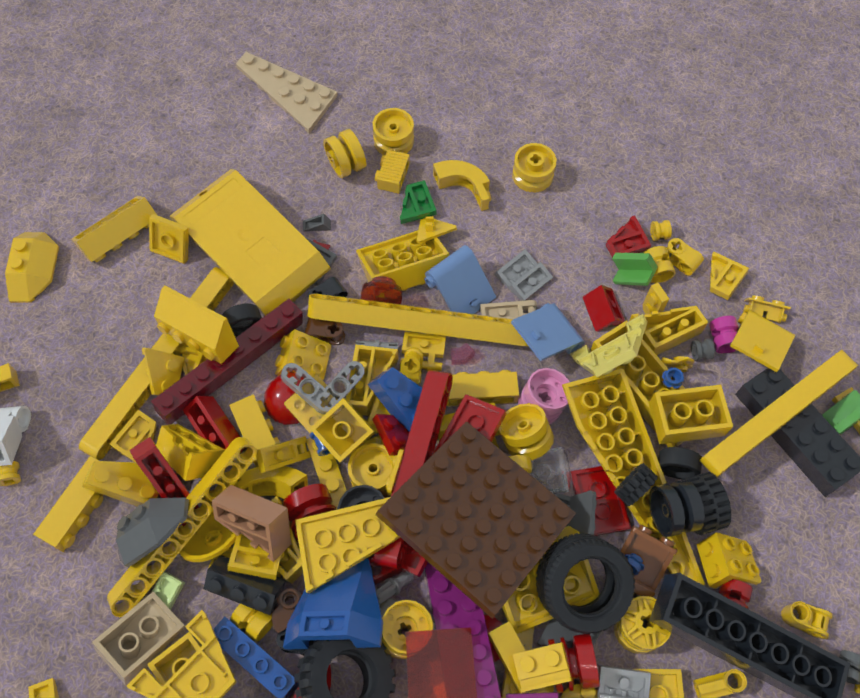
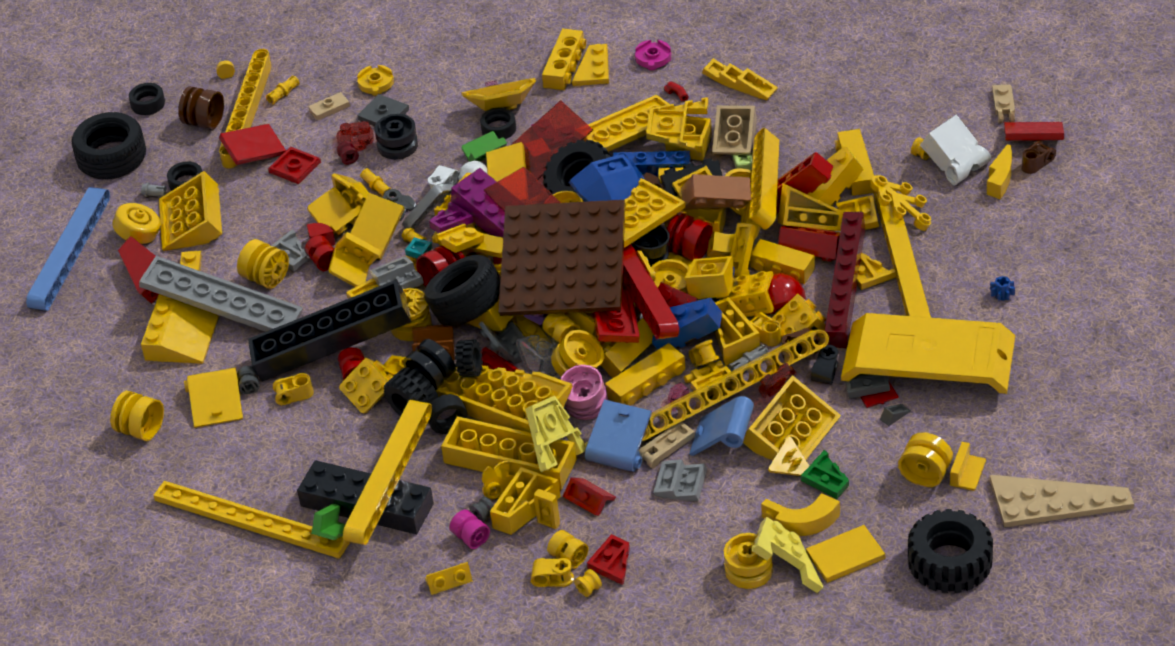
camera: 150 degrees right, 20 degrees down
(30, 266) = (1083, 251): yellow wedge -> none
(98, 435) = (882, 186): none -> yellow plant
(114, 229) = (1050, 306): yellow slope -> none
(125, 269) = (1002, 288): none -> blue gear
(149, 527) = (778, 157): dark grey wedge -> none
(162, 369) = (886, 244): yellow wing -> none
(168, 238) = (997, 314): yellow plate -> none
(194, 325) = (883, 262): yellow slope -> none
(242, 317) = (867, 300): black tyre -> none
(314, 147) = (966, 469): none -> yellow panel
(320, 392) = (747, 280): light grey beam -> none
(335, 367) = (768, 328): none -> yellow piece
(393, 131) = (903, 506): yellow wheel -> none
(393, 171) = (874, 486): yellow brick -> none
(396, 67) = (950, 572): none -> black tyre
(458, 141) = (845, 553): none -> yellow tile
(504, 155) = (787, 545): none -> light yellow wing
(634, 268) = (586, 527): bright green panel -> none
(636, 563) = (439, 335): blue plate -> none
(676, 374) = (489, 447): blue plate -> none
(690, 414) = (458, 421): yellow brick -> none
(725, 275) = (502, 582): yellow wing -> none
(762, 340) = (435, 534): yellow door -> none

